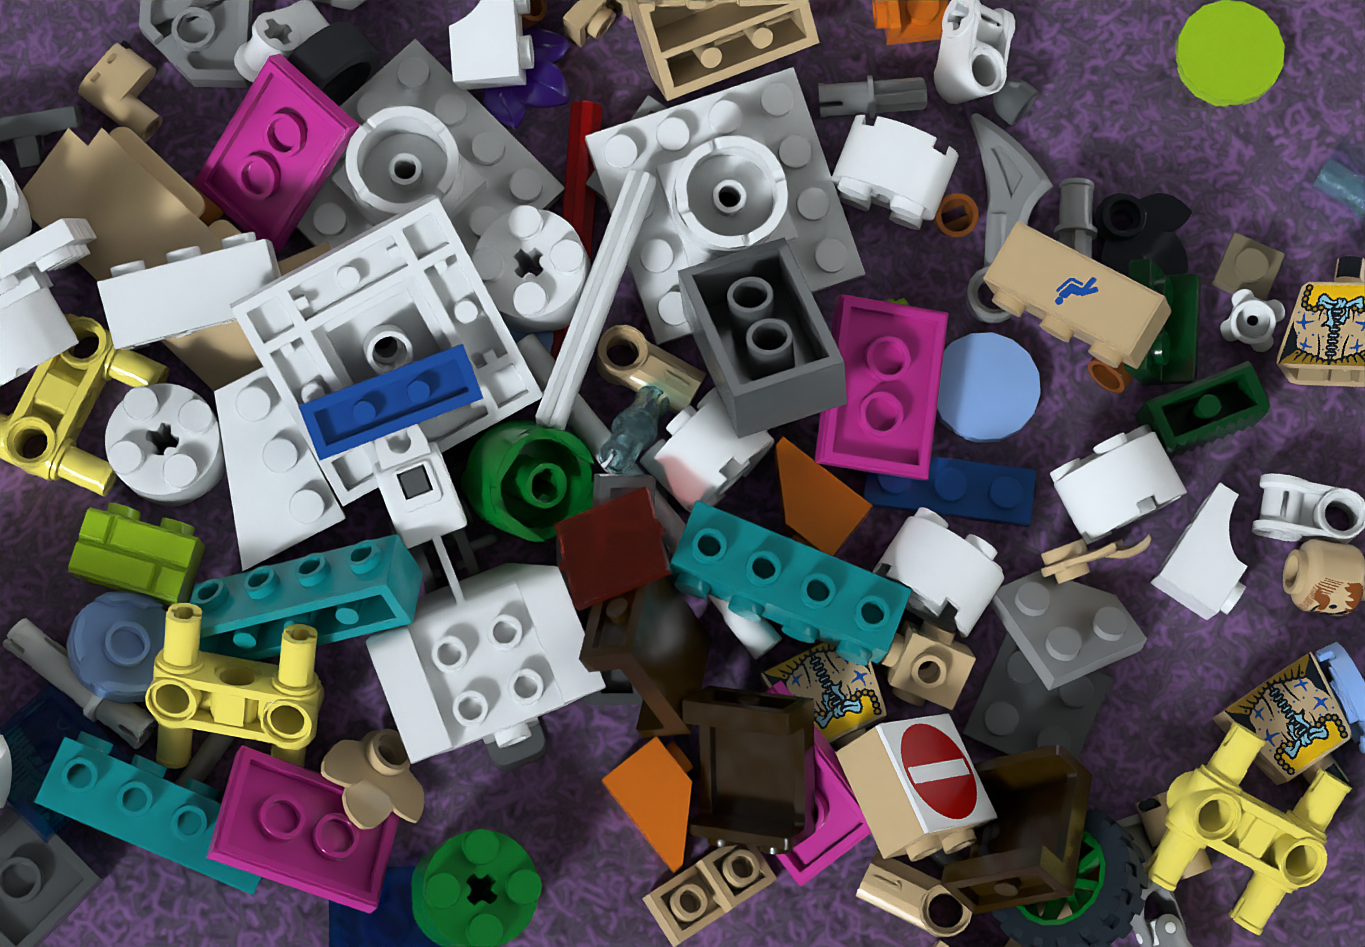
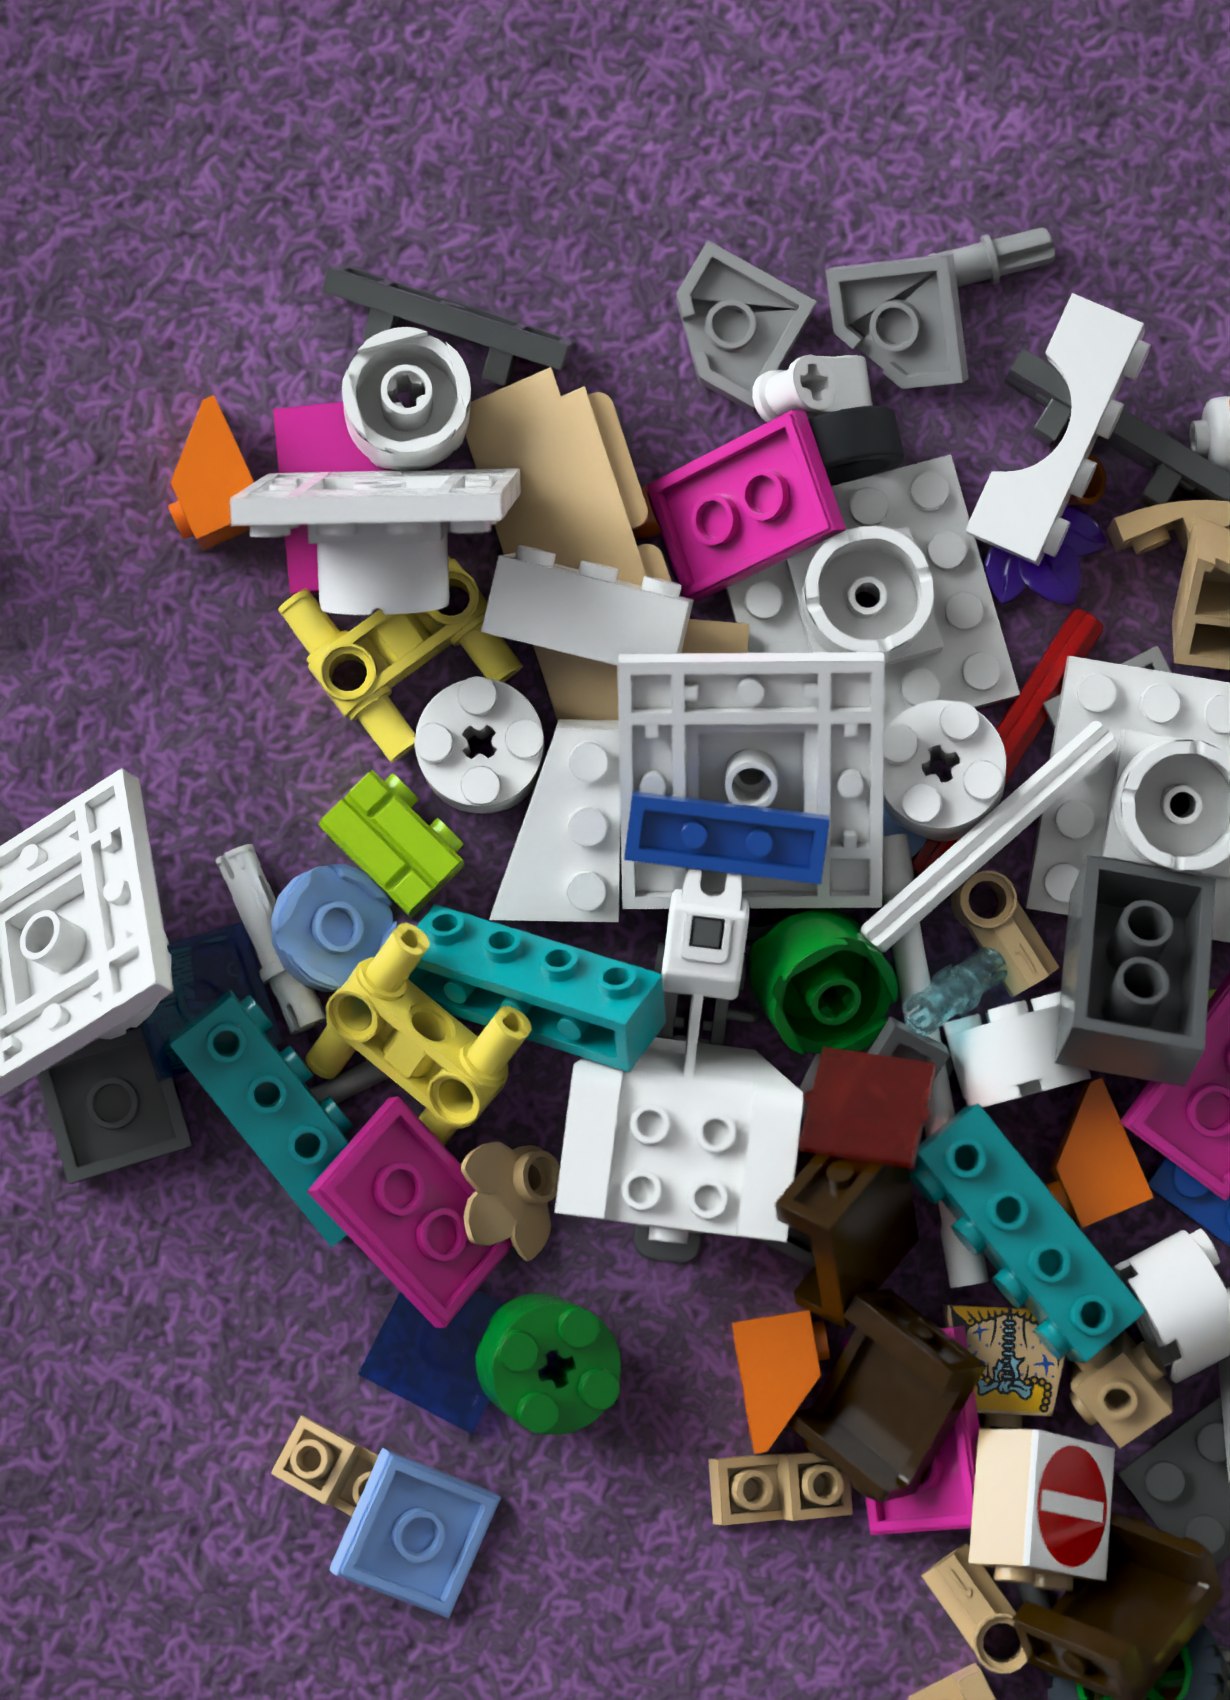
camera: 35 degrees right, 5 degrees up
(114, 90) = (618, 342): tan piece -> none

